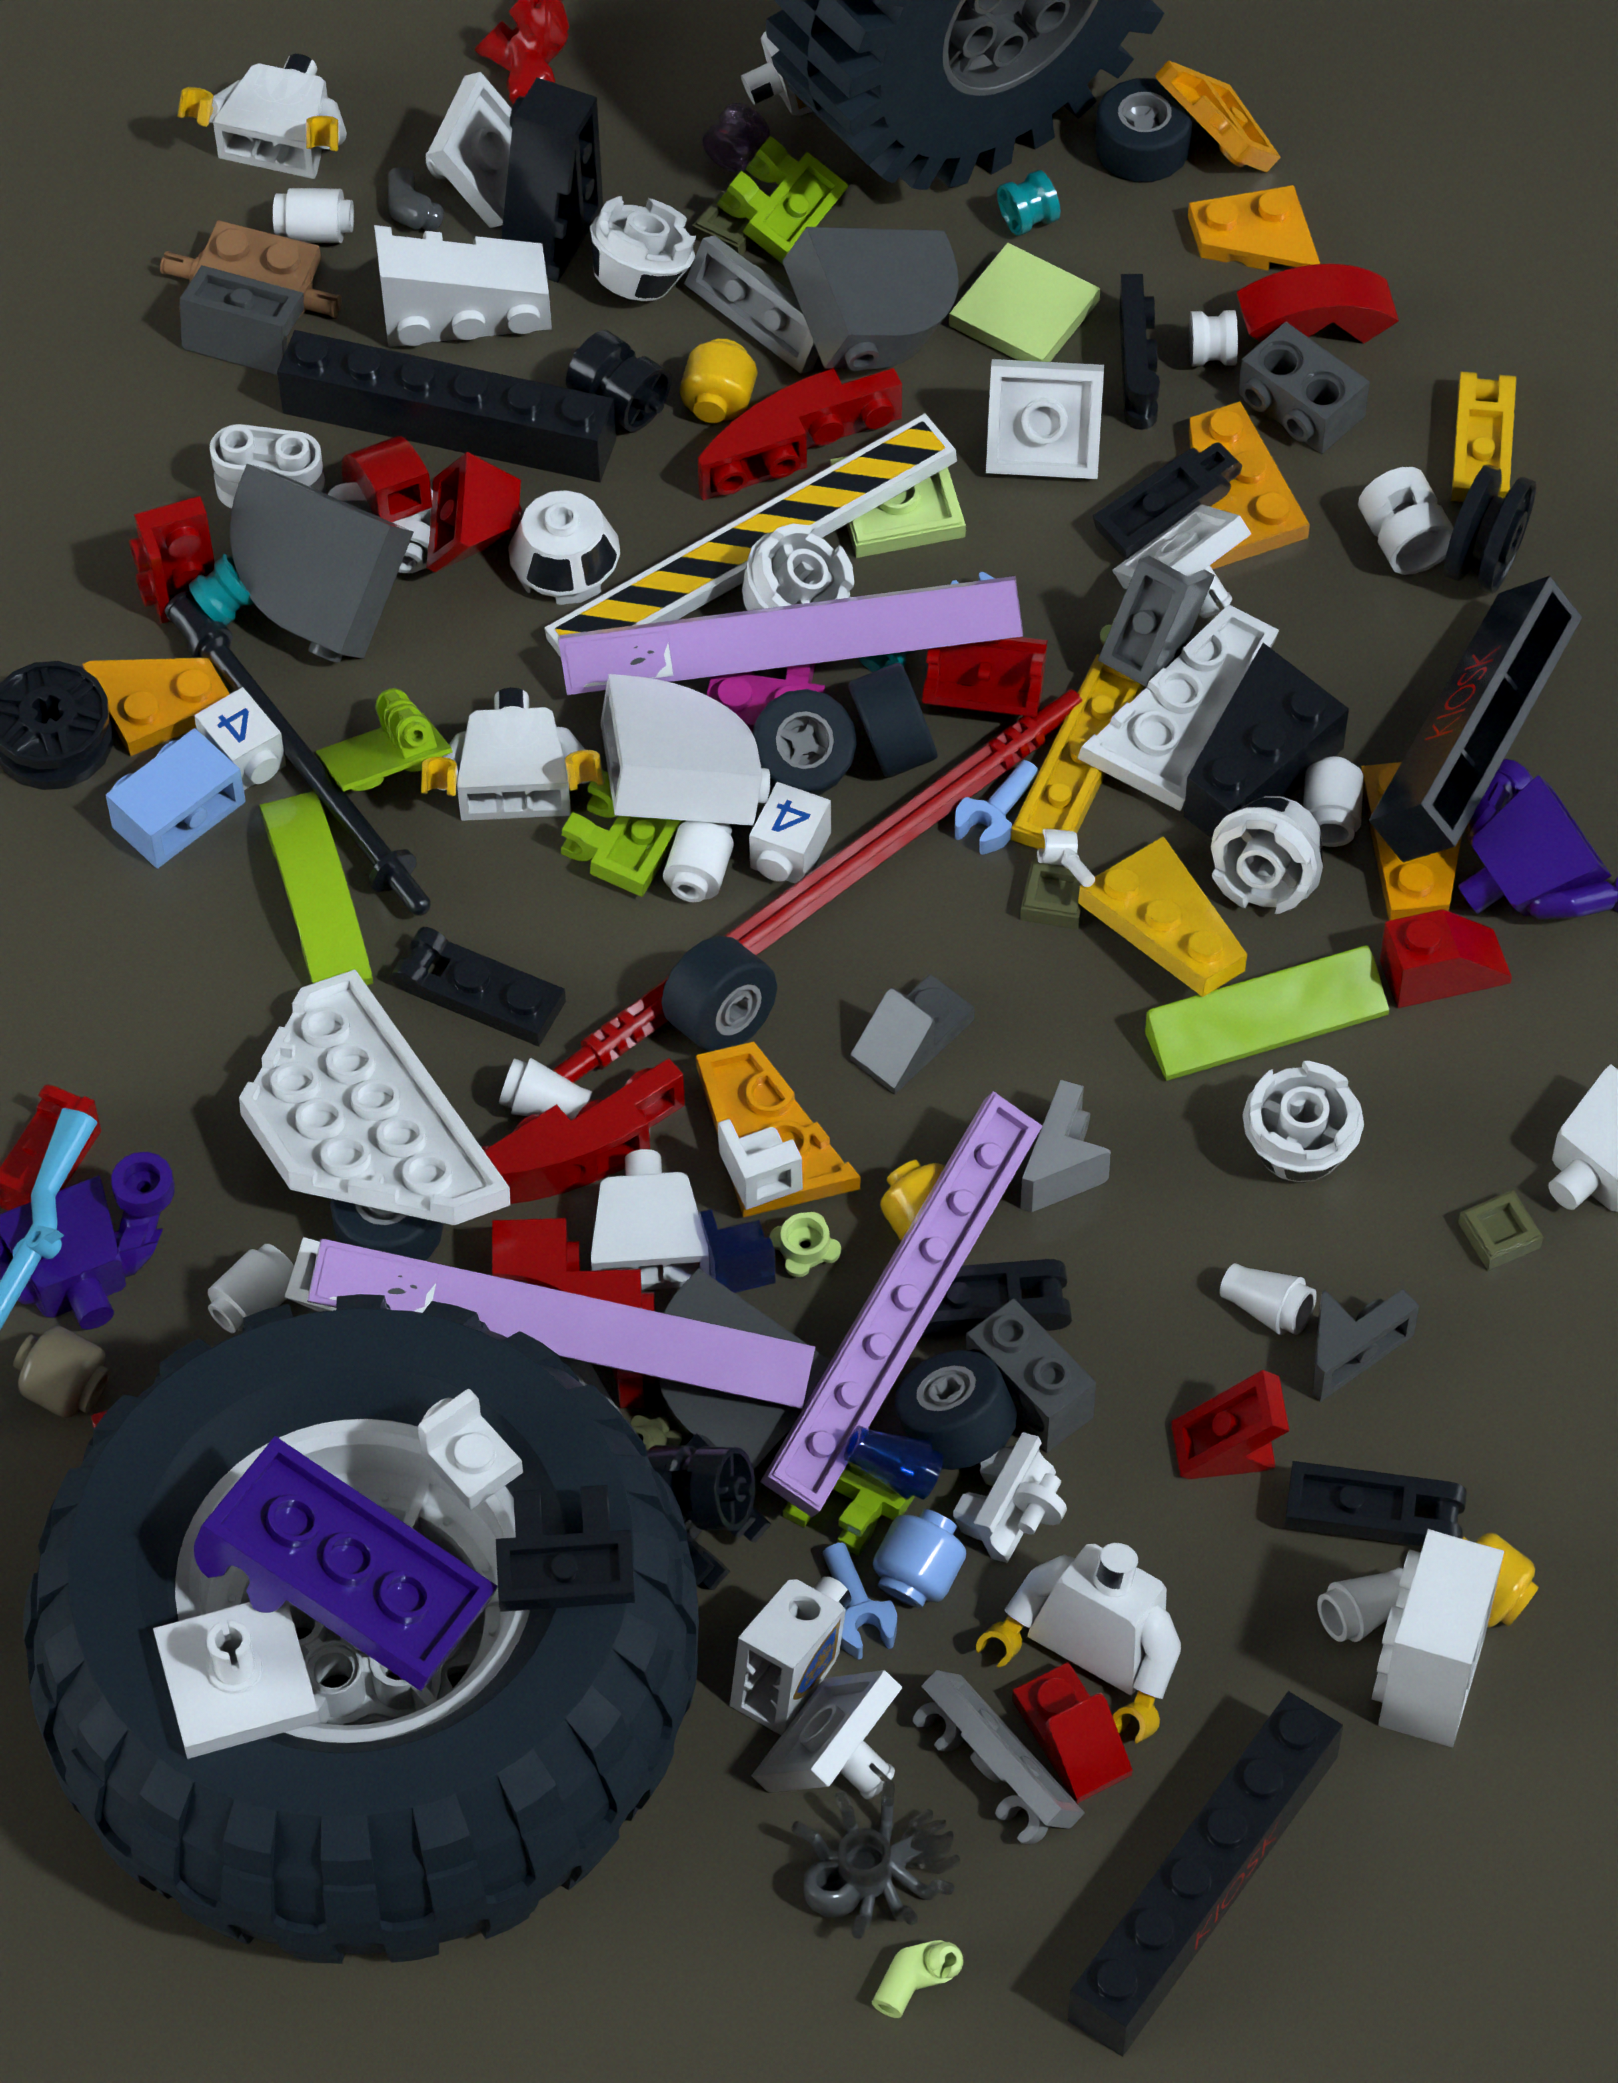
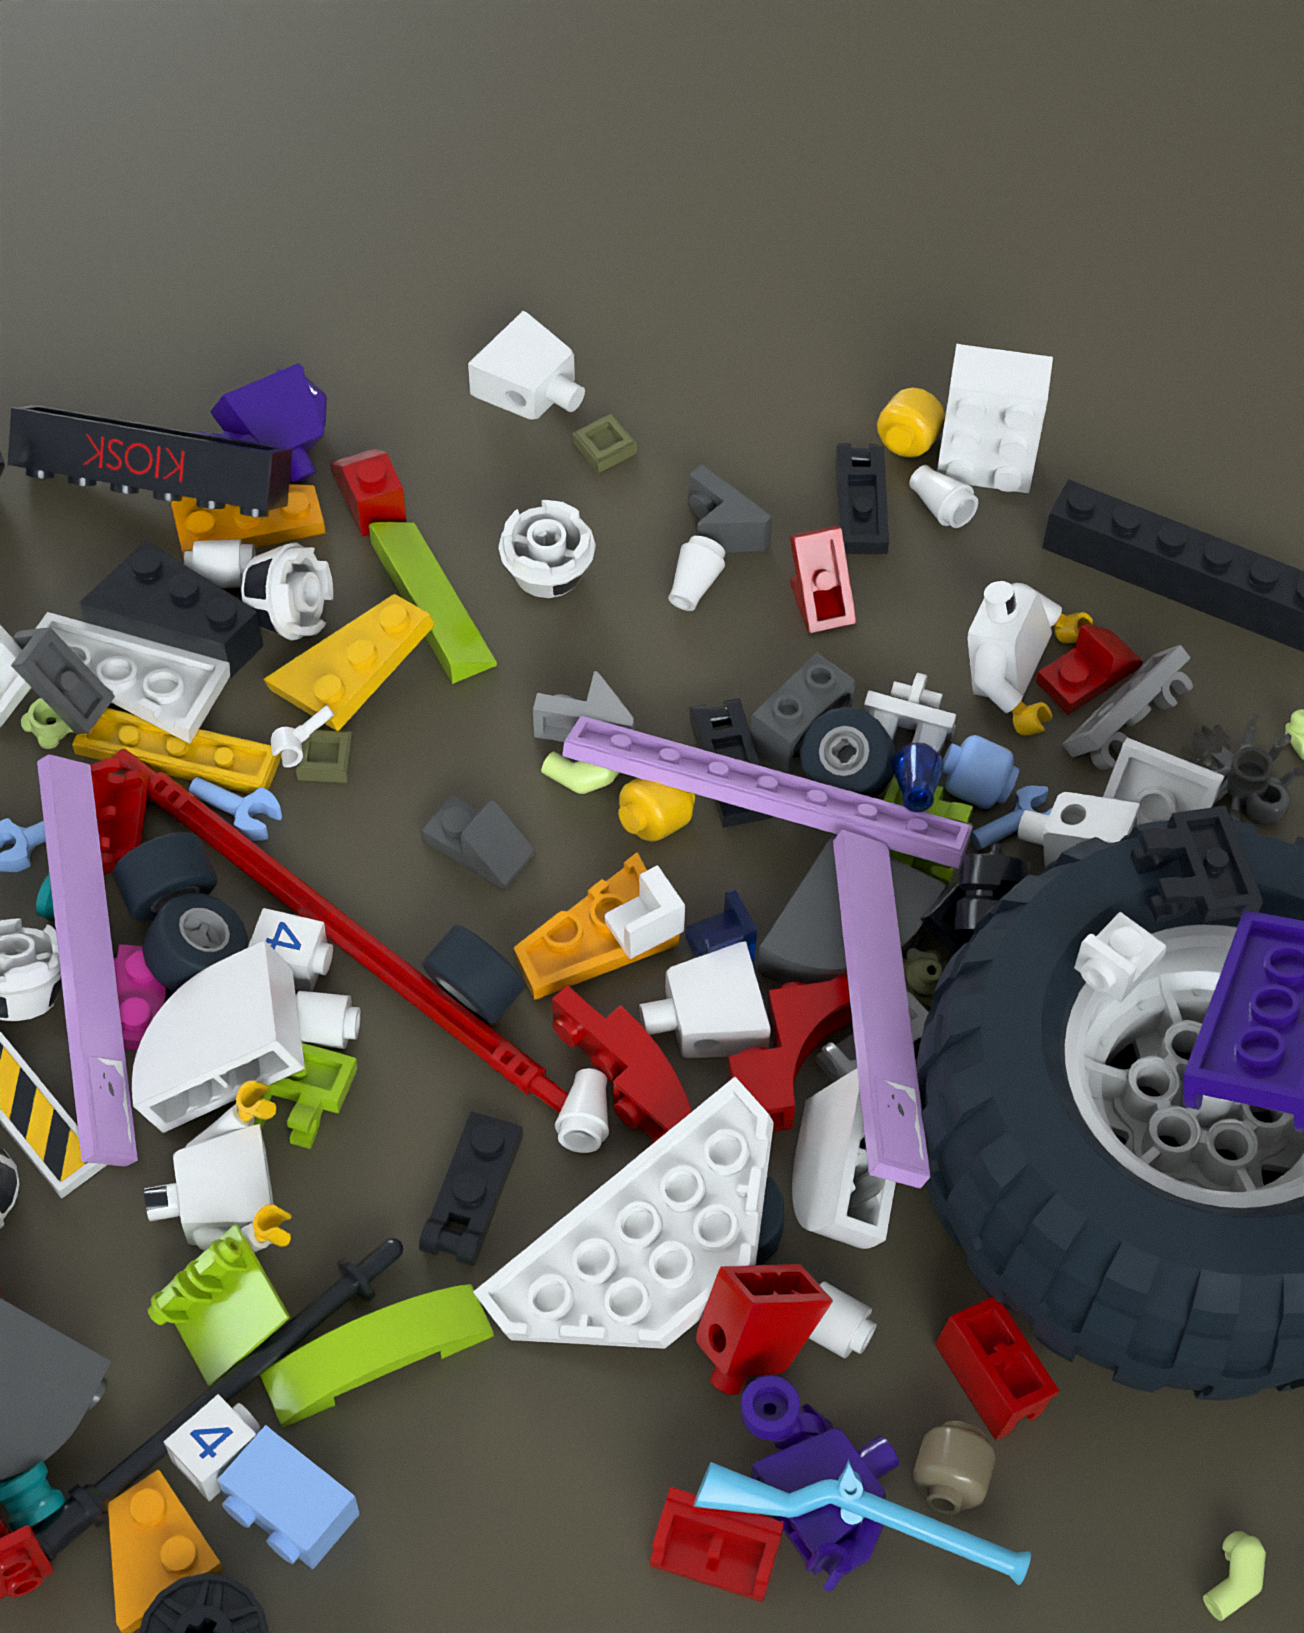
camera: 100 degrees left, 0 degrees up
(246, 1196) = (758, 1321): none -> red torso
(801, 1228) = (700, 880): yellowish green plate -> none

